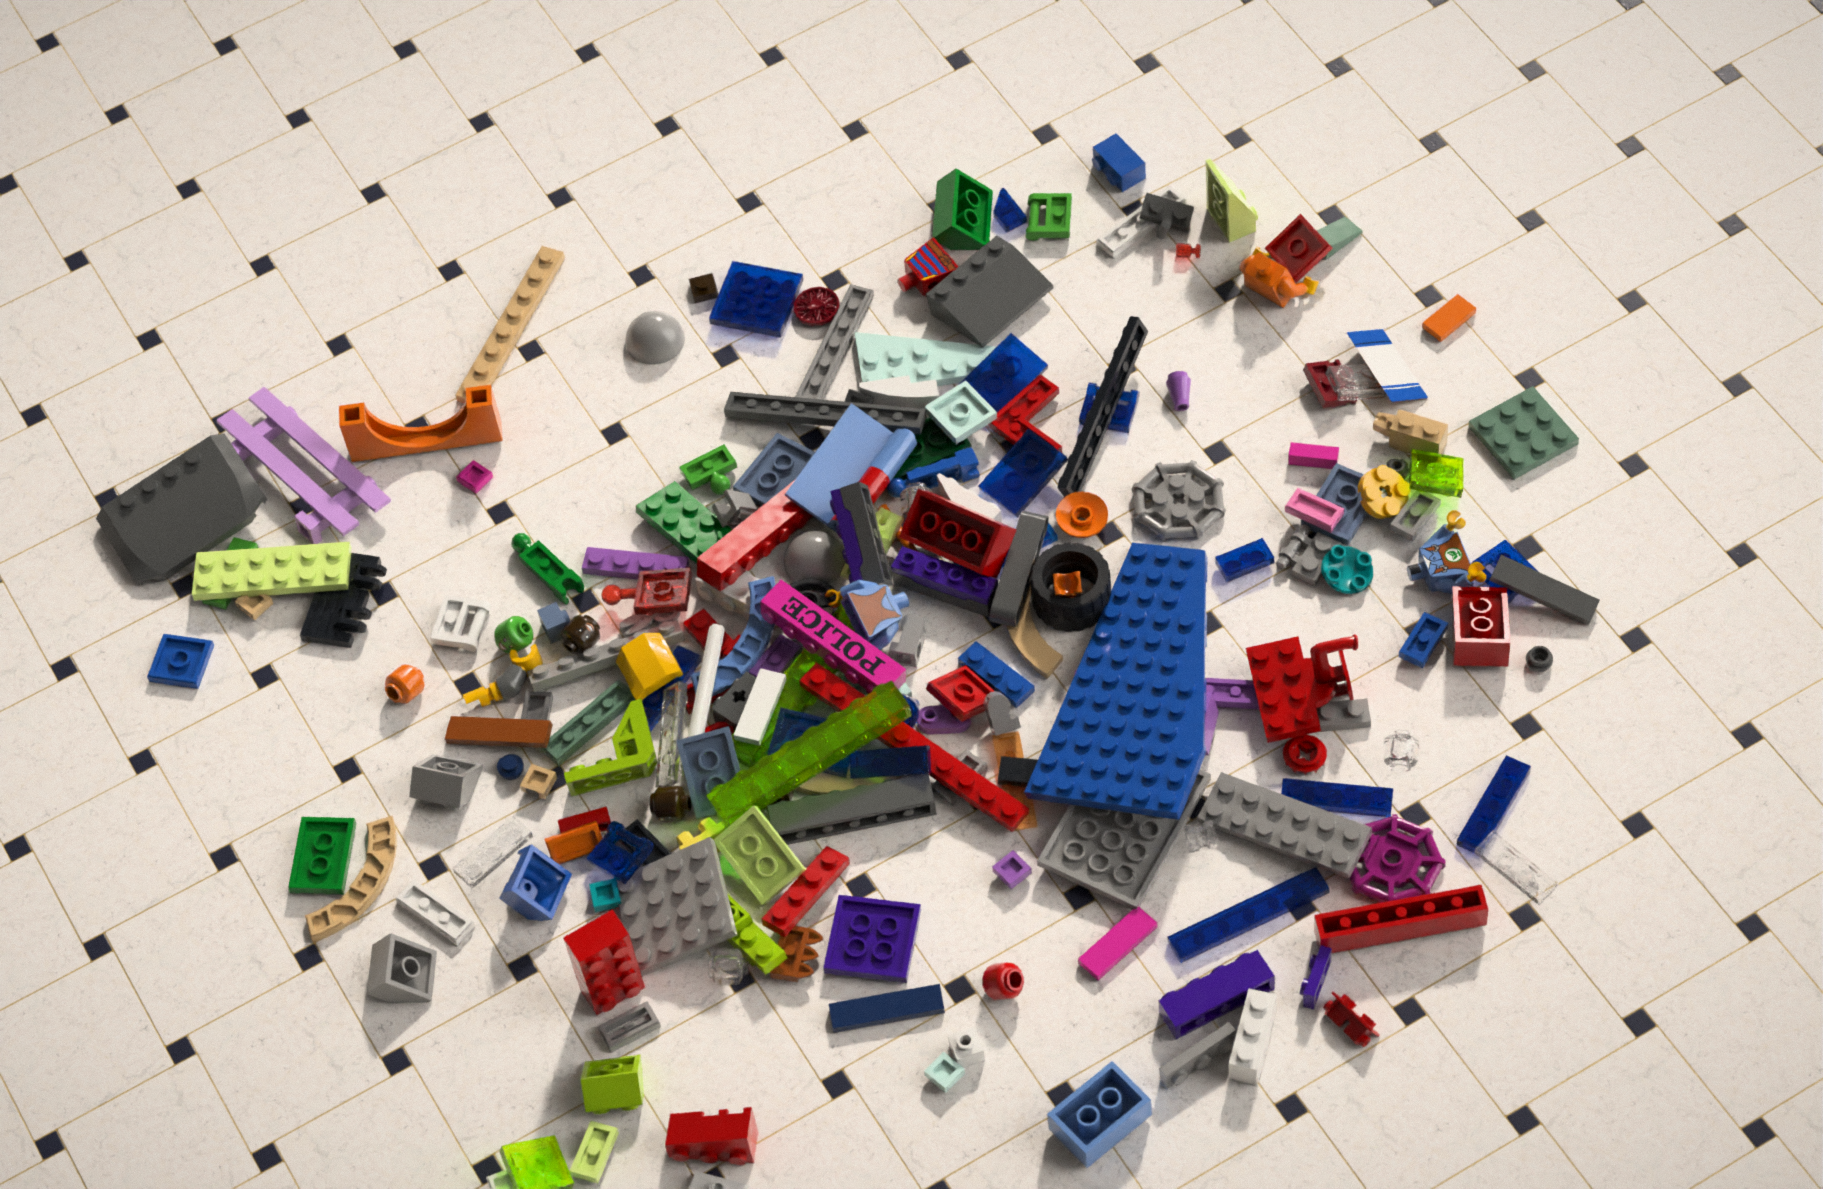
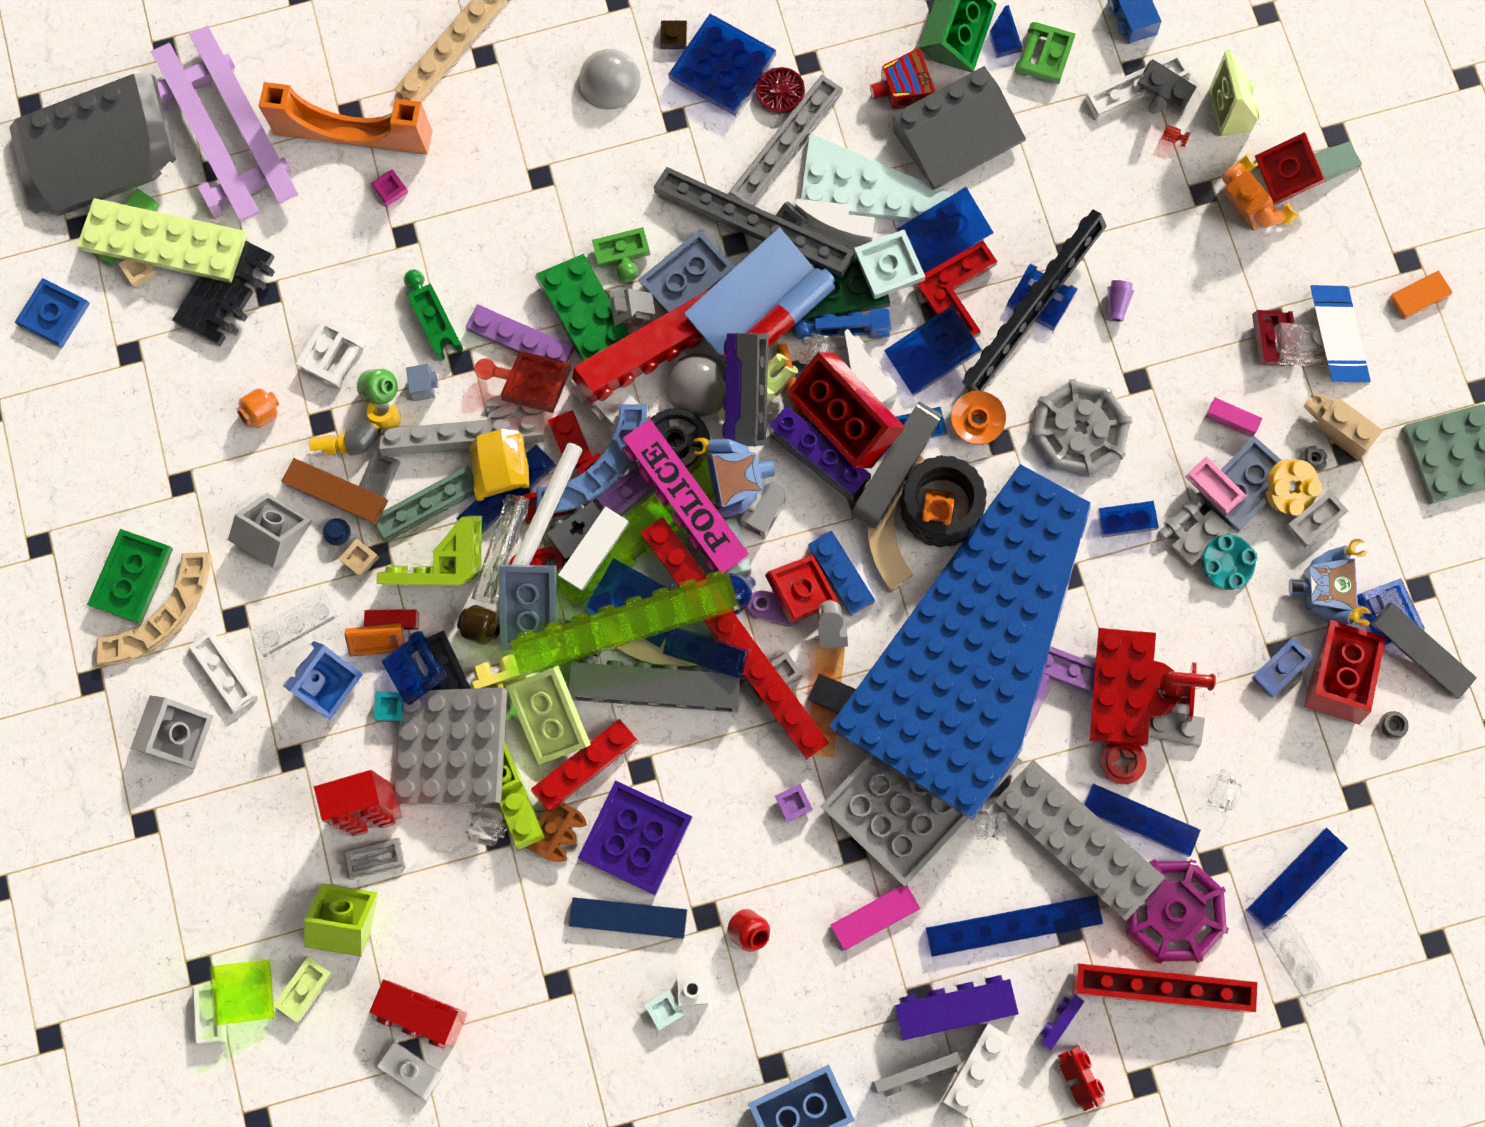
camera: 15 degrees right, 20 degrees up
(580, 634) = (443, 405): dark brown head -> none
(1436, 473) = (1353, 480): clear neon green plate -> none

